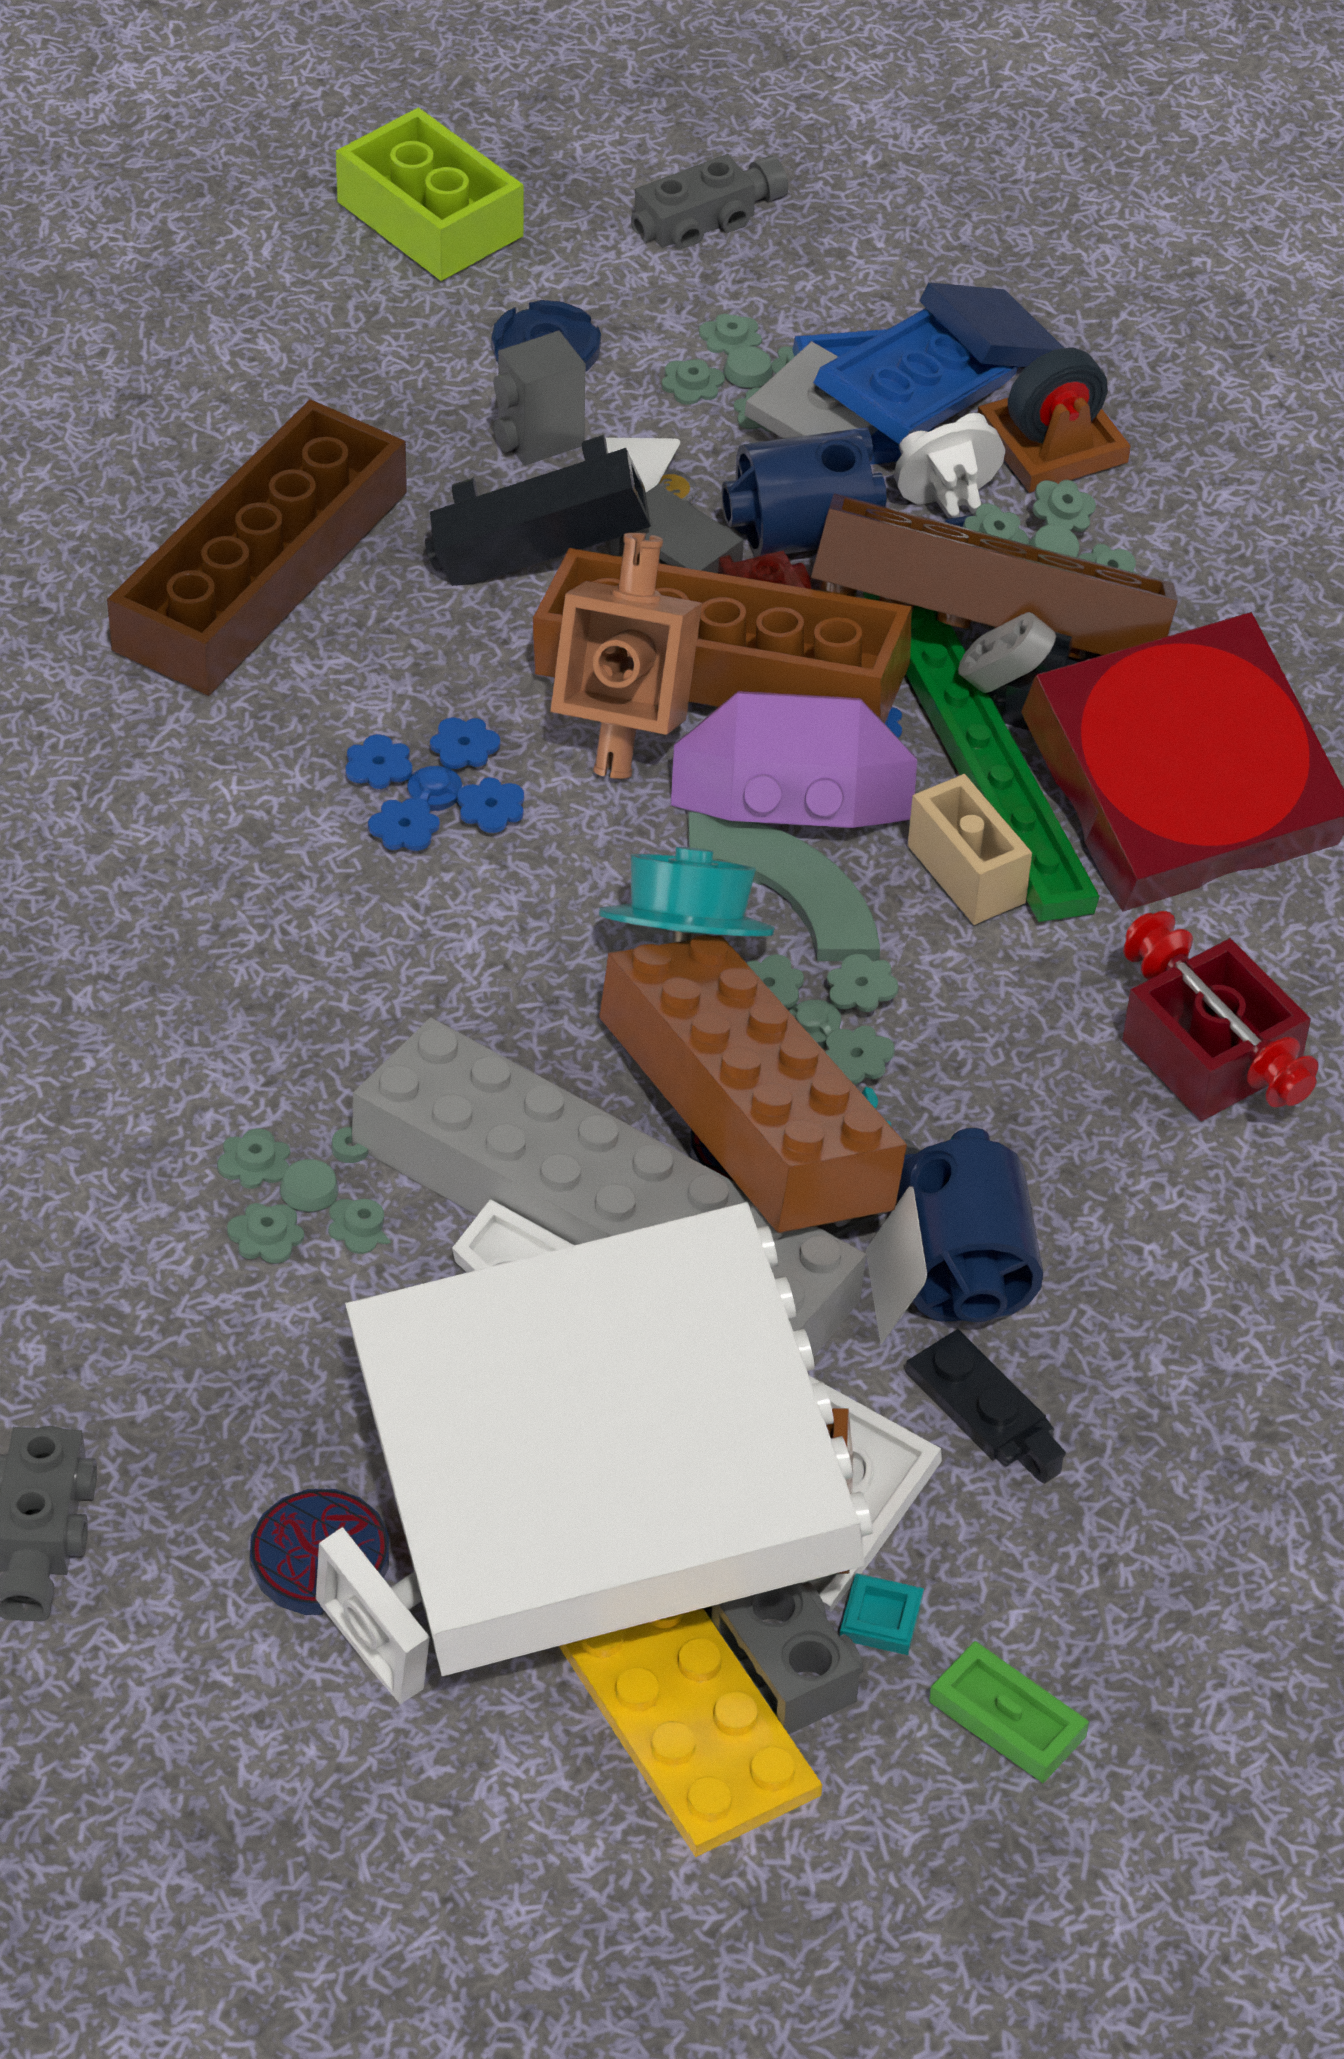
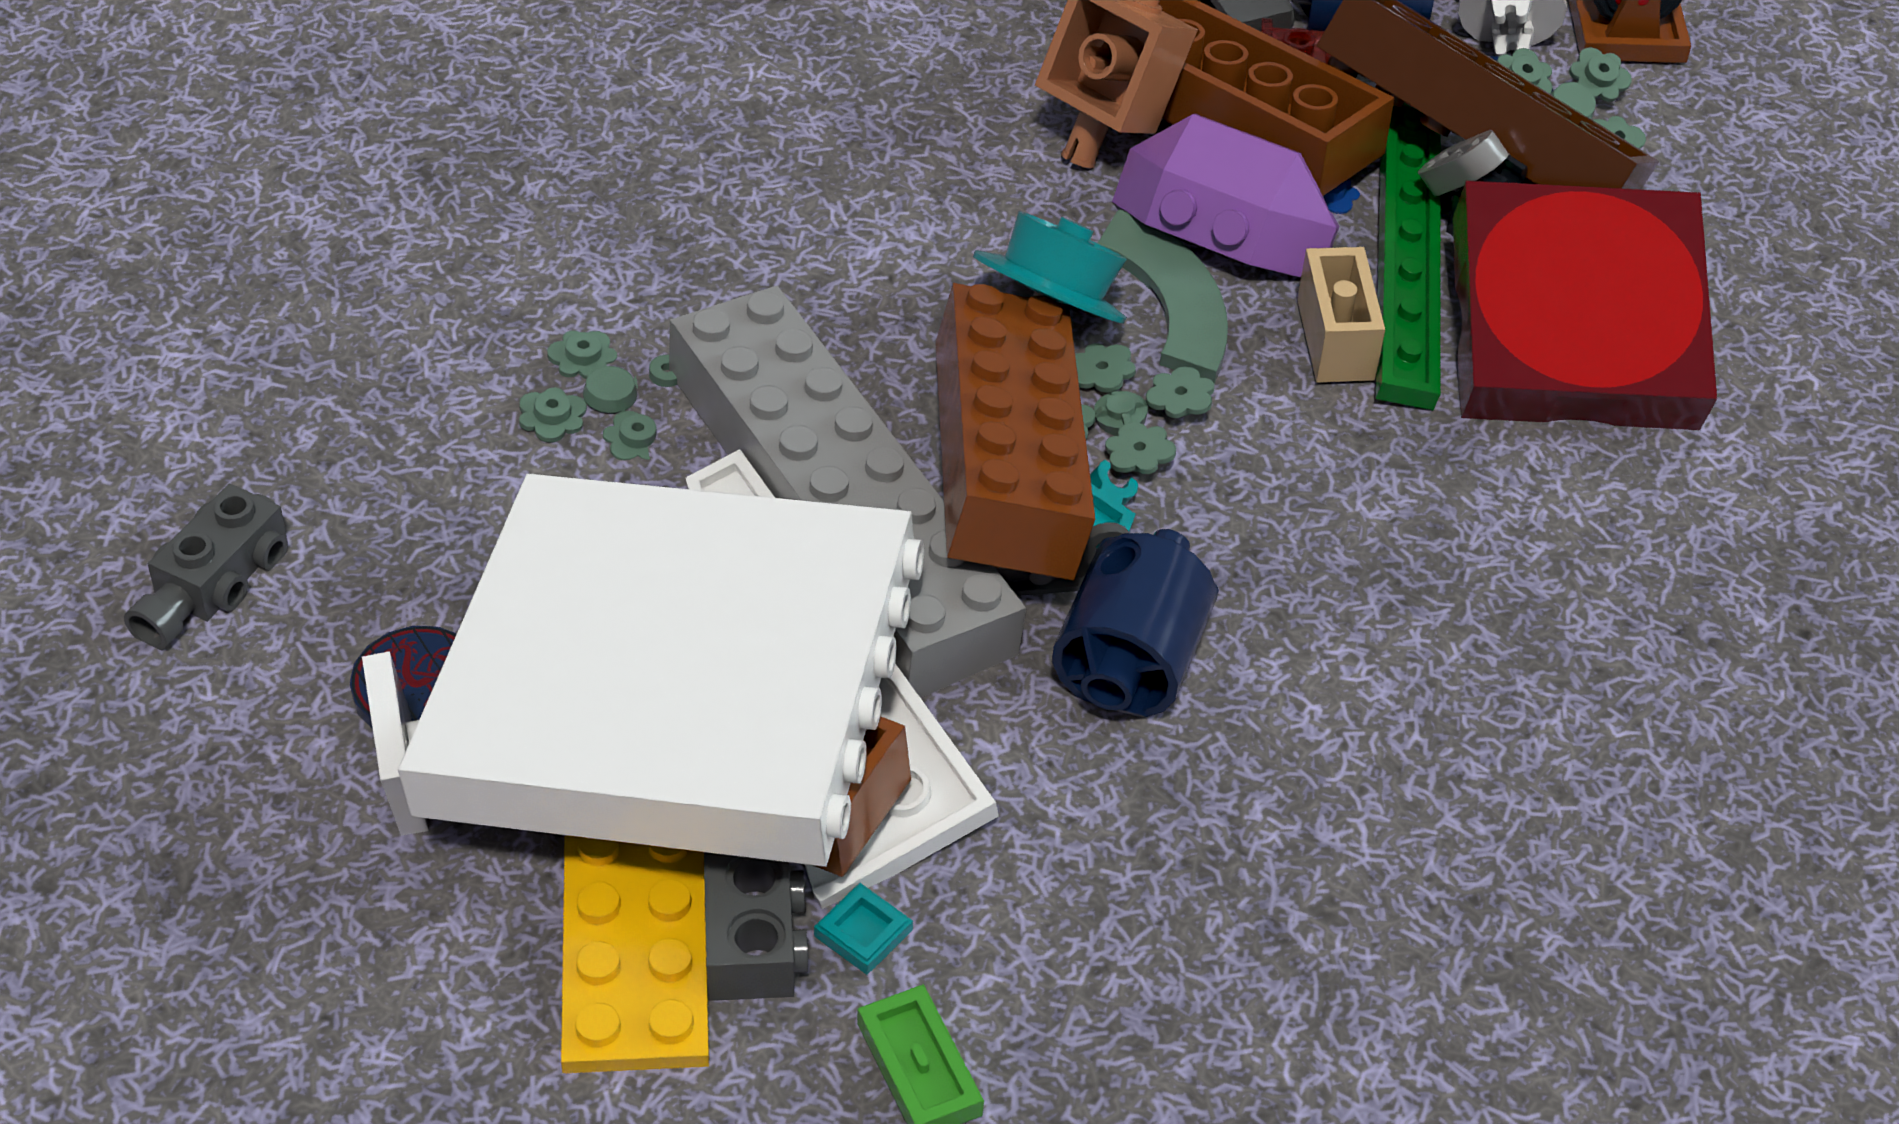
camera: 25 degrees right, 0 degrees up
(434, 787) = (920, 123): blue plant -> none
(896, 1264) = (1054, 629): white sticker -> none
(987, 1405) = (1073, 784): black hinge -> none
(1213, 1022) = (1476, 529): dark red brick -> none

